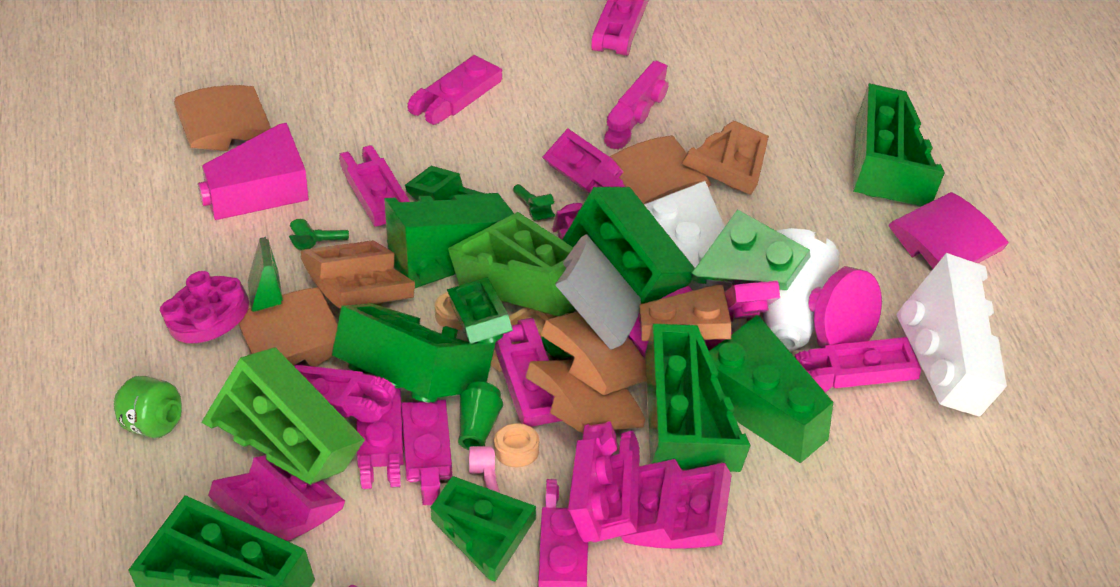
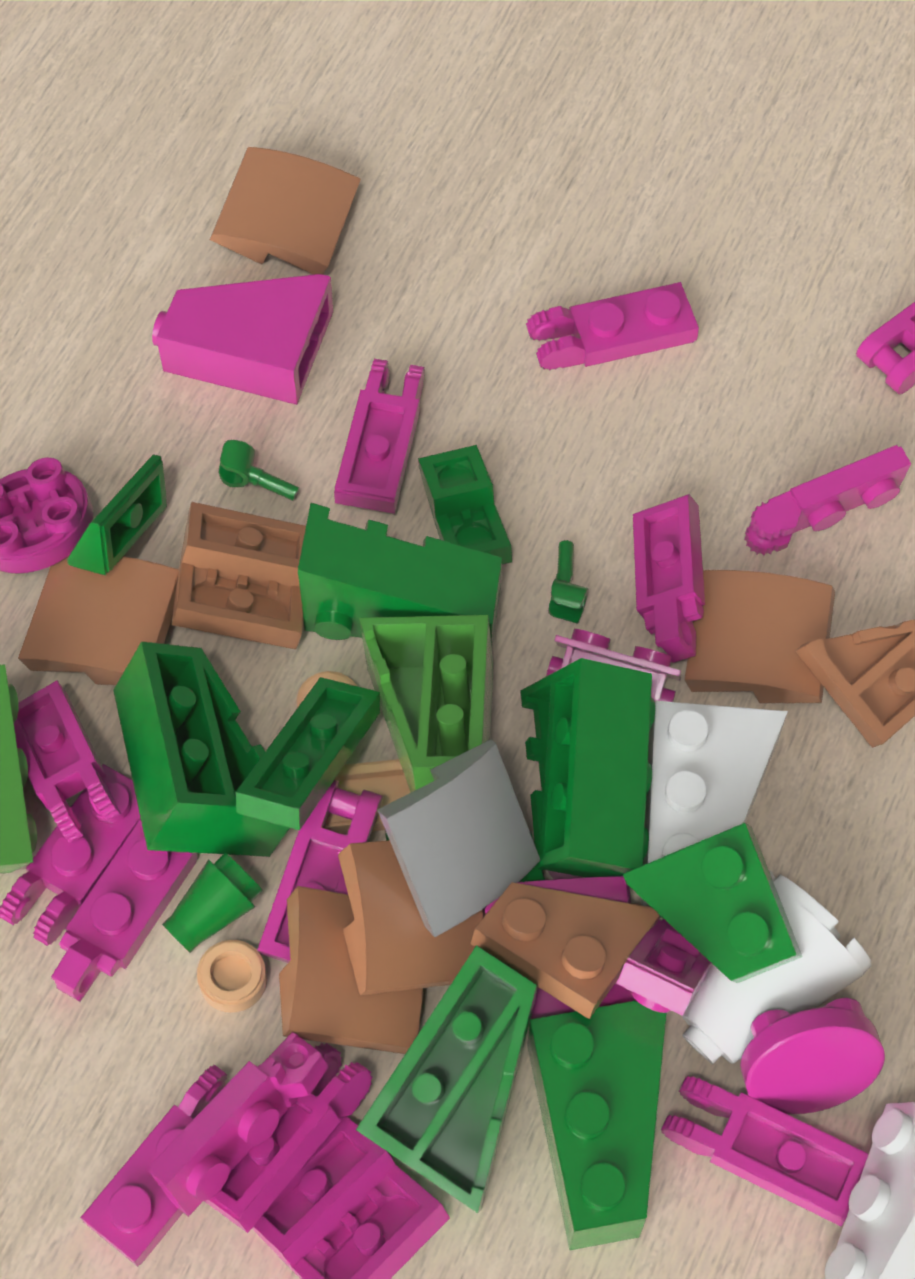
camera: 35 degrees right, 20 degrees up
(482, 523) = (84, 1081): green wing -> none
(483, 461) = (169, 981): bright pink hand -> none

